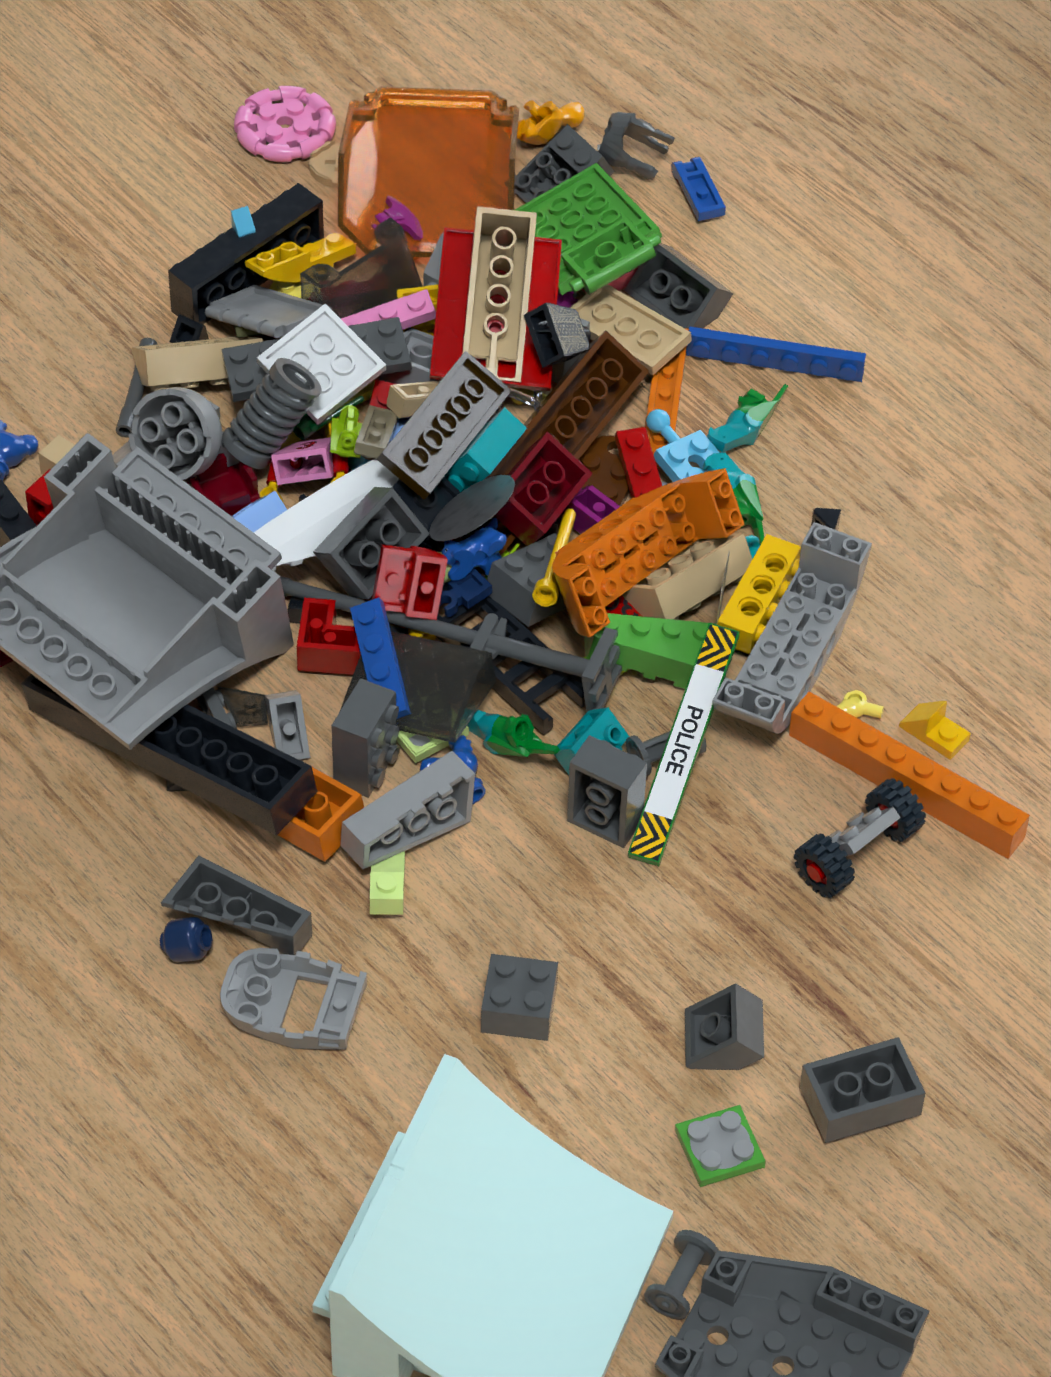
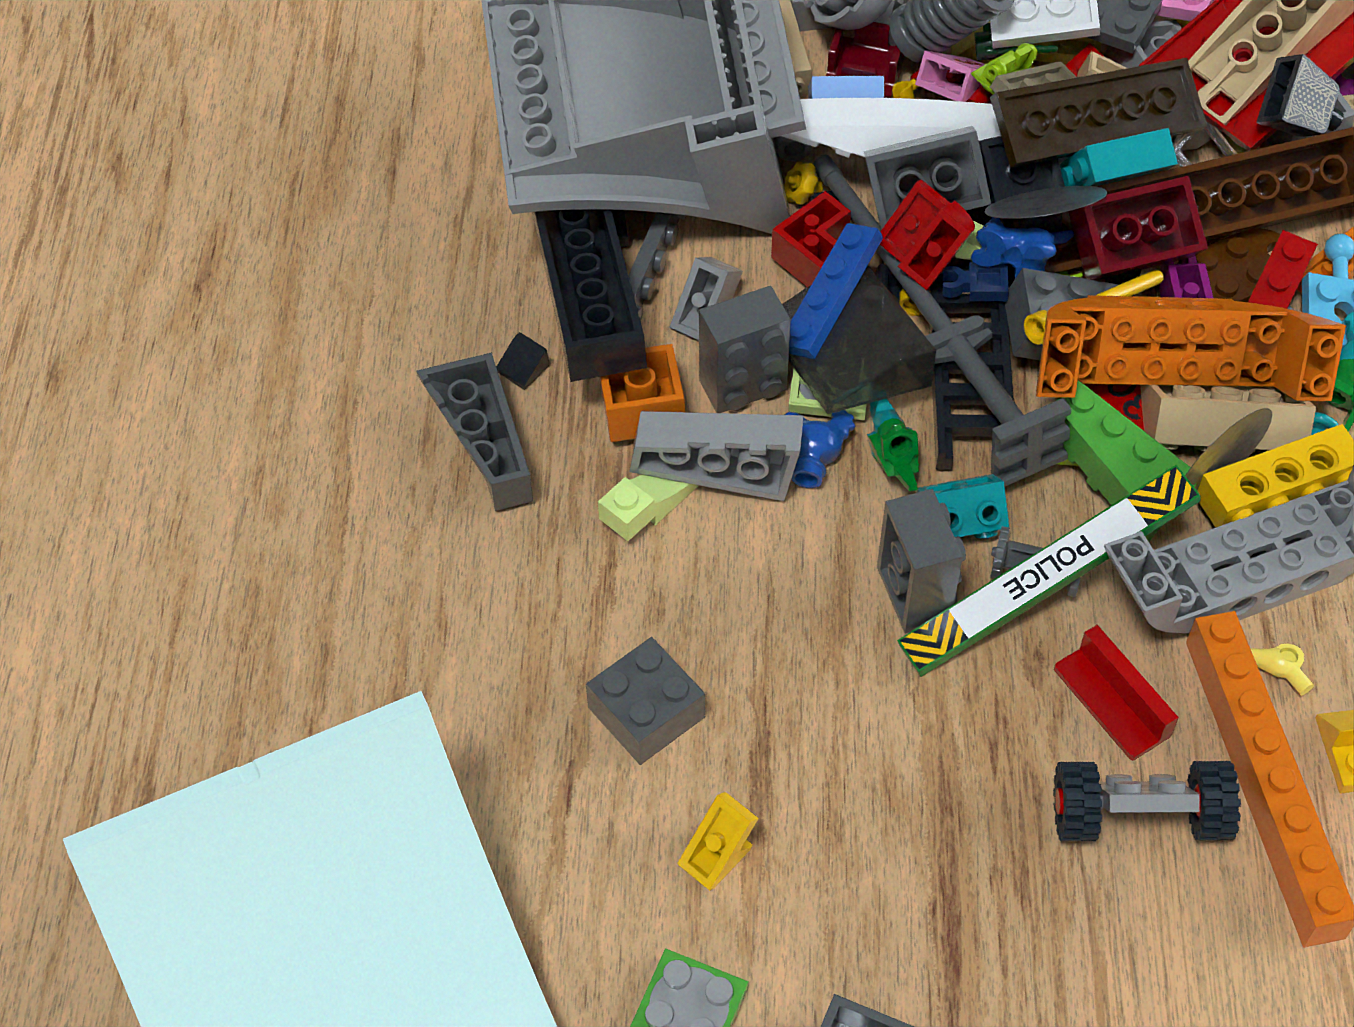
camera: 45 degrees right, 5 degrees up
(186, 939) = (417, 423): dark blue head -> none
(209, 846) = (523, 361): none -> black slope
(245, 706) = (684, 253): clear smoke piece -> none
(261, 988) = (435, 515): light grey slope -> none
(647, 1041) = (718, 841): none -> yellow slope
(724, 1030) = (810, 893): dark grey slope -> none
(781, 791) = (1117, 694): none -> red panel

